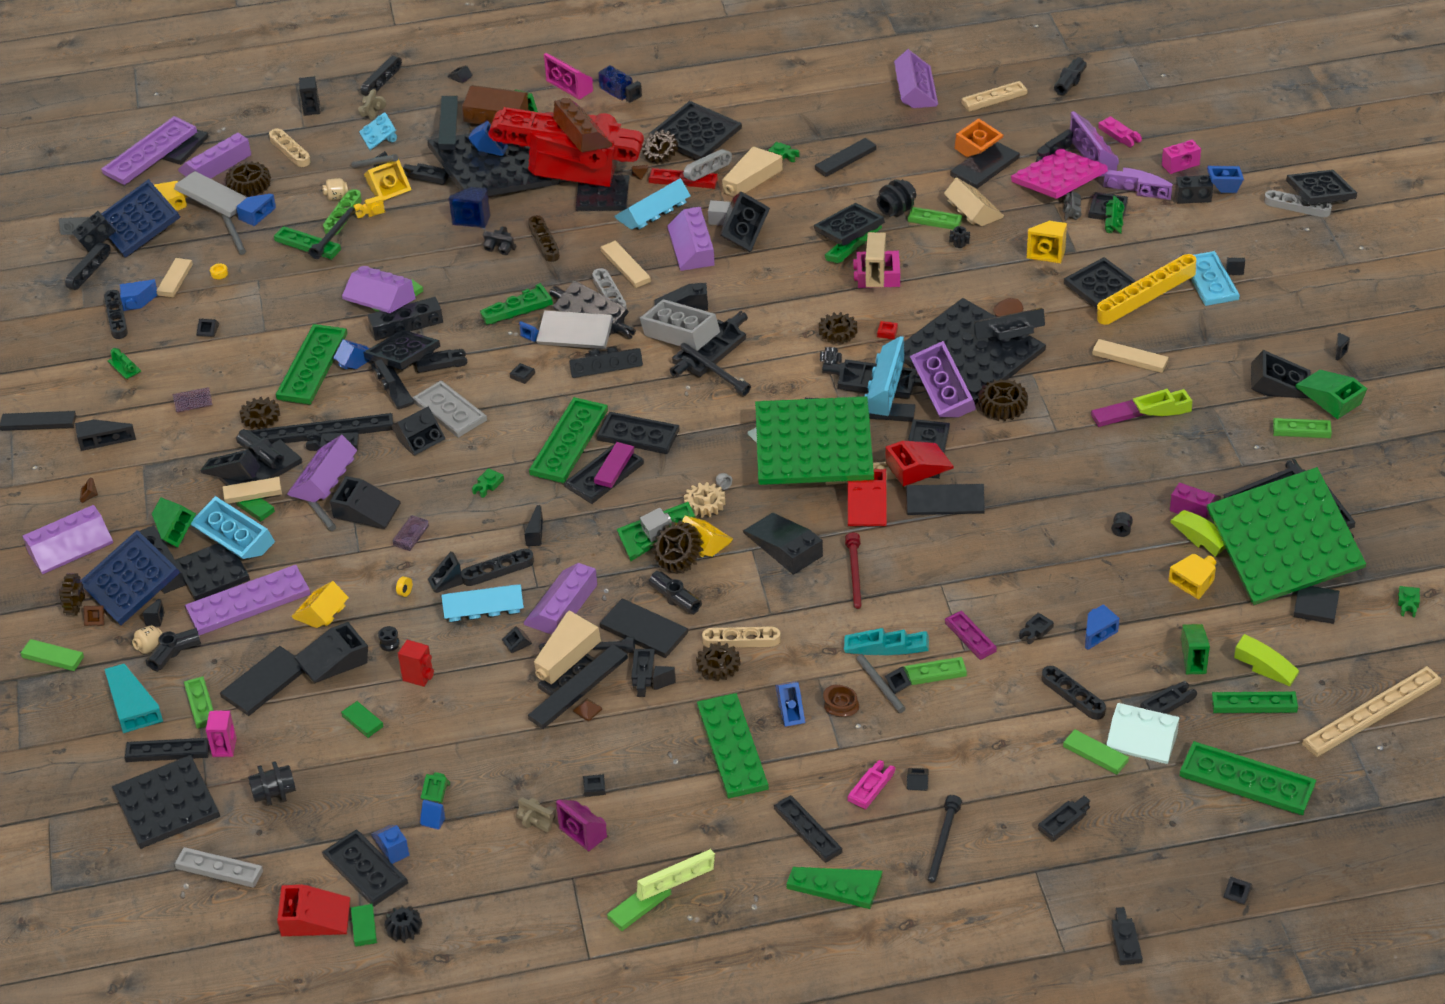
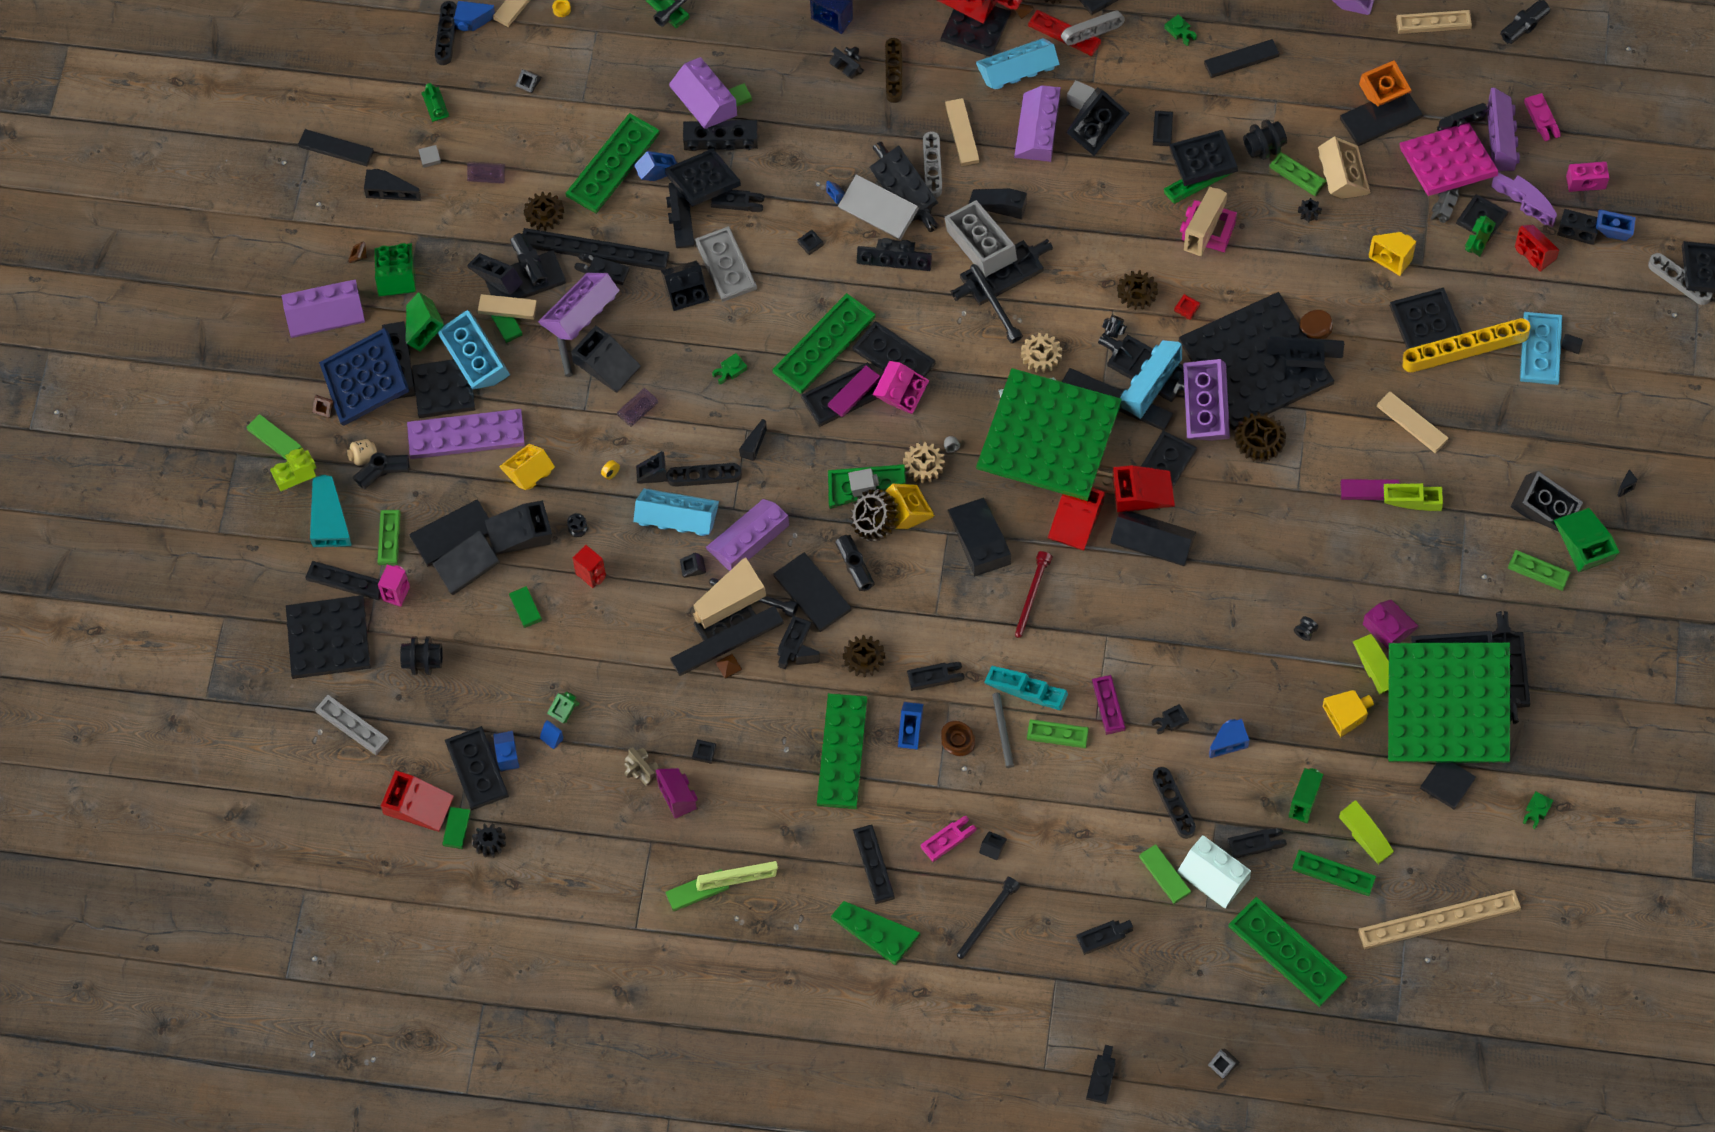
camera: 20 degrees right, 20 degrees up
(71, 594) = (307, 379): dark brown gear -> none
(84, 667) = (296, 470): none -> lime plate
(129, 493) = (394, 269): none -> green slope
(132, 404) = (429, 156): none -> light grey tile
(154, 614) = (376, 424): black slope -> none
(288, 697) = (466, 562): none -> black tile
(523, 304) = (834, 153): green wing -> none
(656, 448) = (900, 387): none -> dark pink slope
(741, 634) = (895, 637): tan beam -> none
(751, 171) = (1134, 49): tan slope -> none
(774, 390) = (1050, 353): none -> tan gear
(794, 658) = (934, 675): none -> black hinge
(801, 218) = (1162, 128): none -> black tile
(898, 679) = (1019, 733): black slope -> none
(1166, 210) = (1535, 247): none -> red slope

